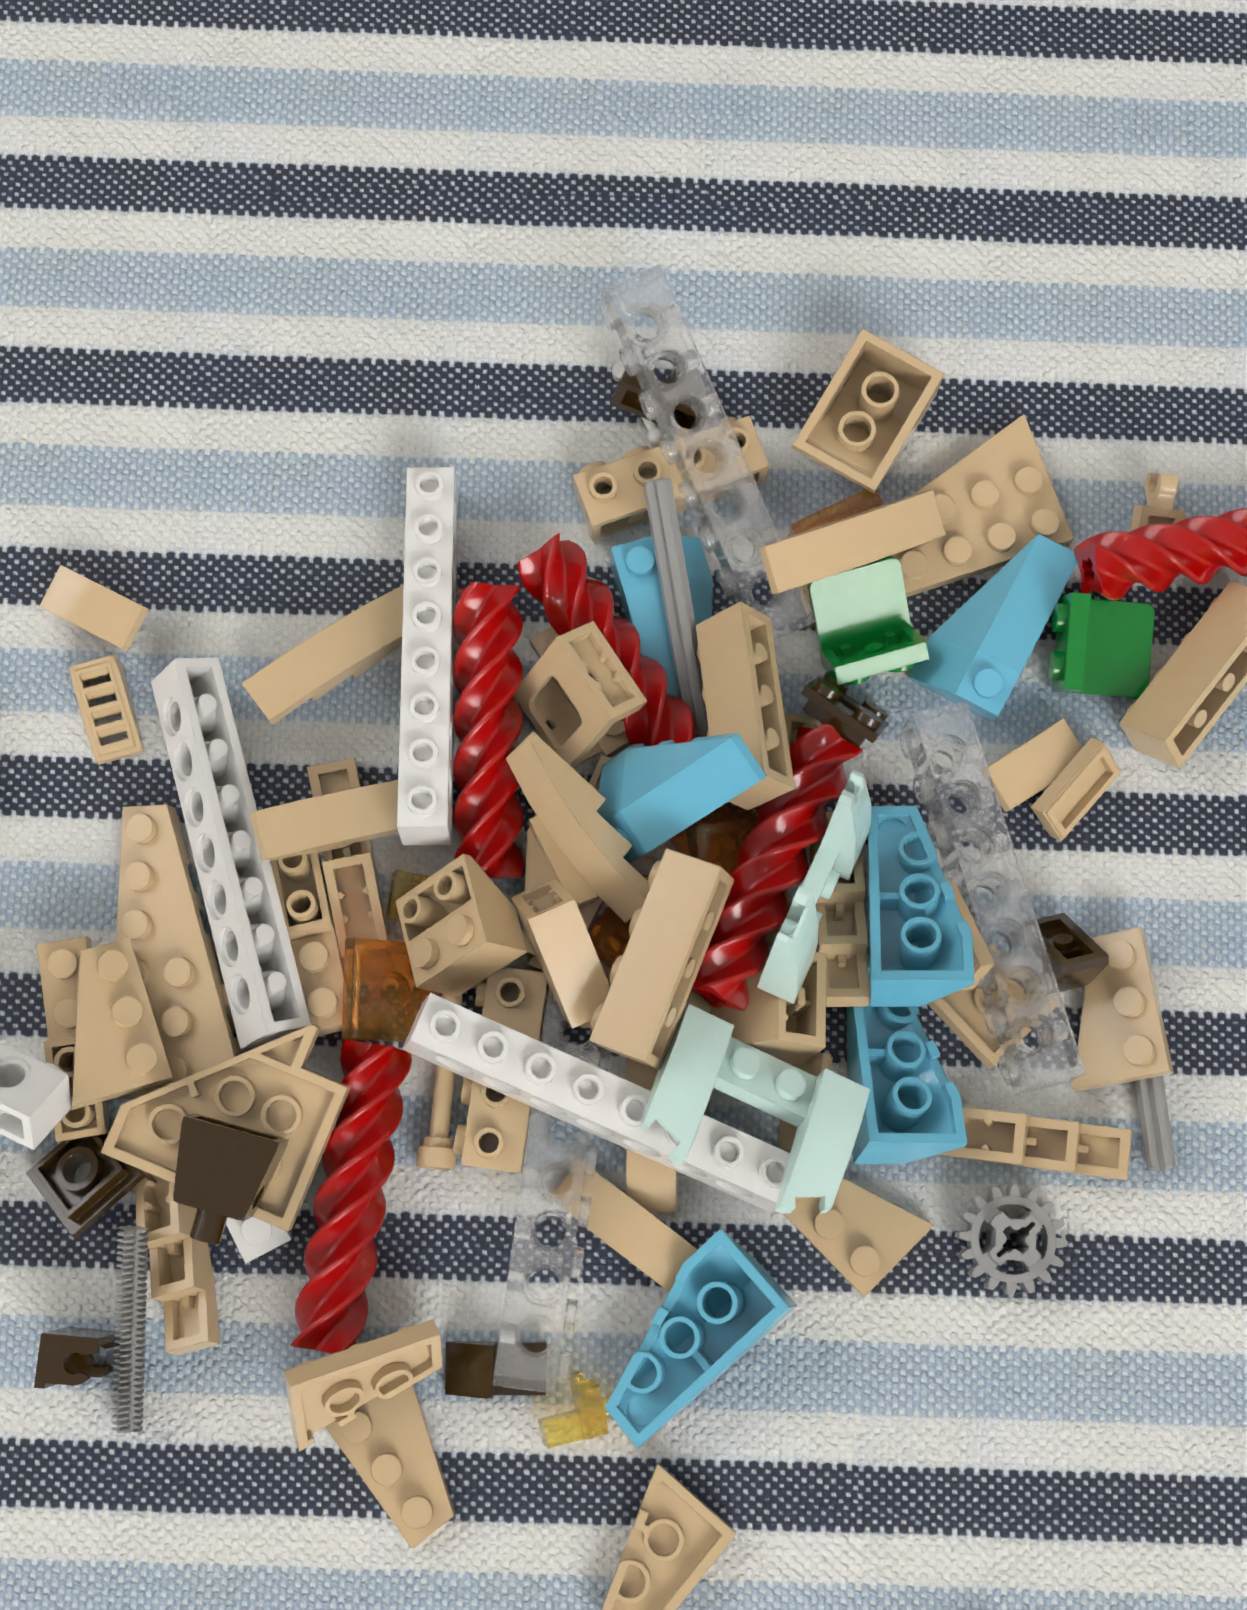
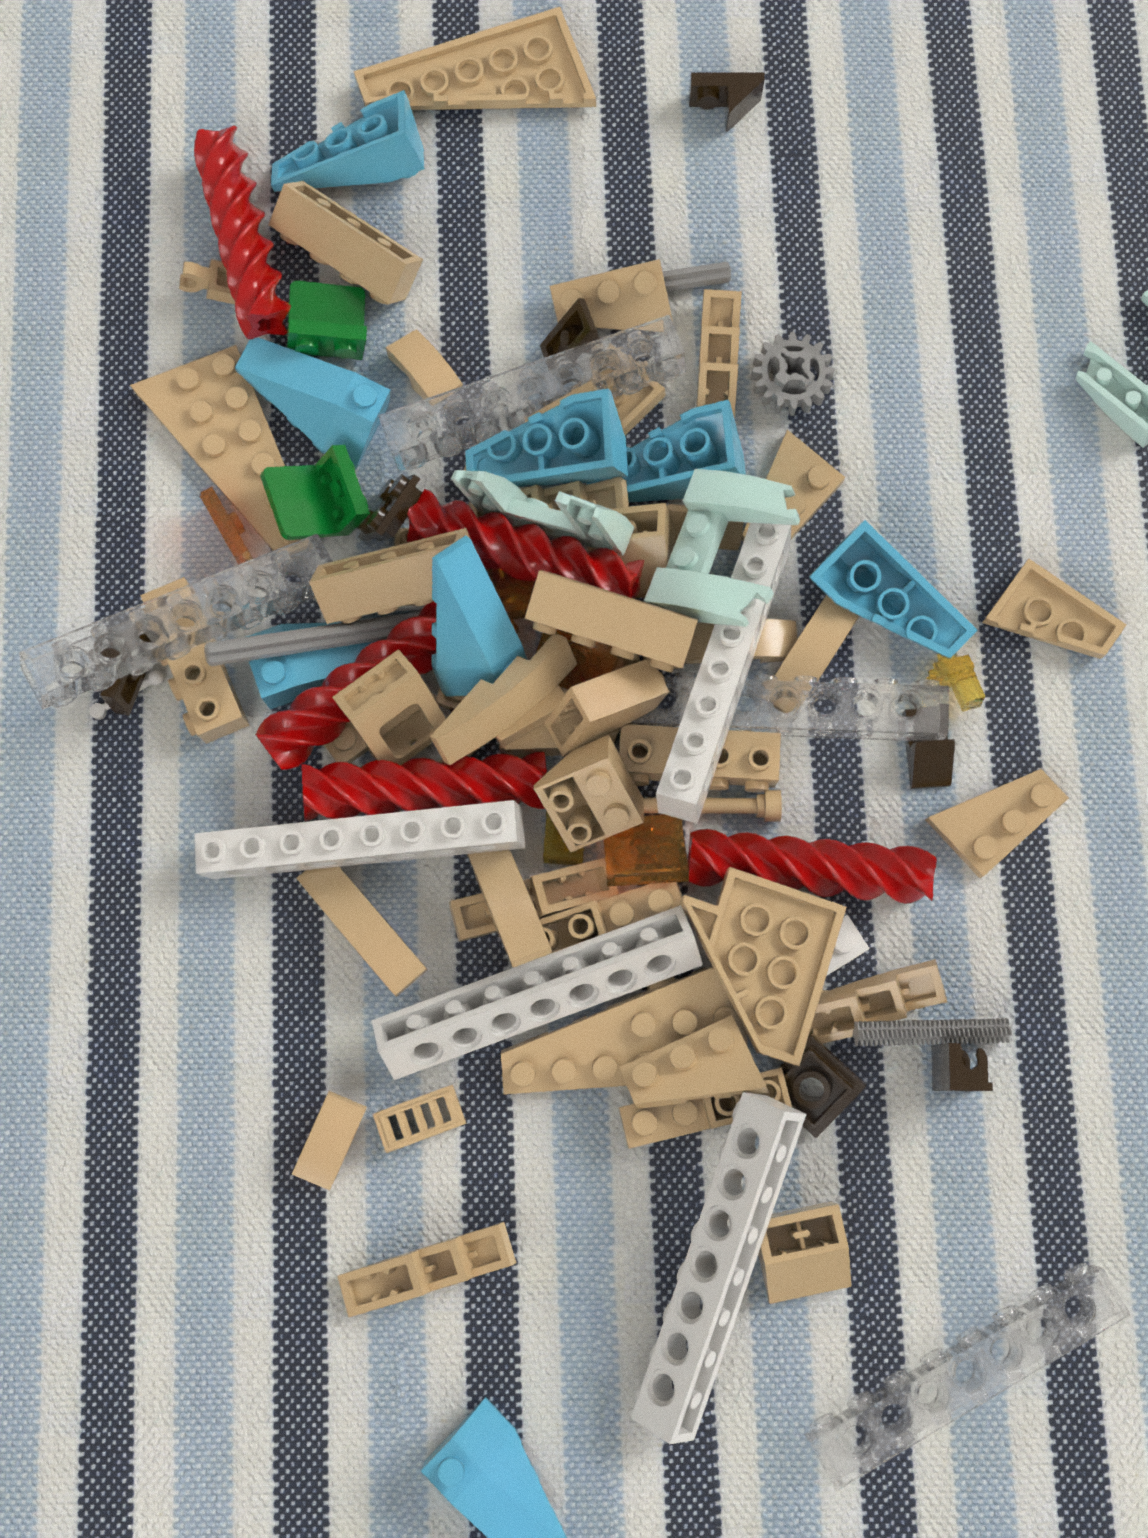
camera: 90 degrees left, 0 degrees up
(223, 1172) = (808, 955): dark brown torso -> none
(343, 1381) = (943, 838): tan wing -> none
(851, 541) = (251, 505): tan slope -> none
(869, 411) = (133, 500): tan slope -> none
(1076, 789) = (442, 336): tan tile -> none

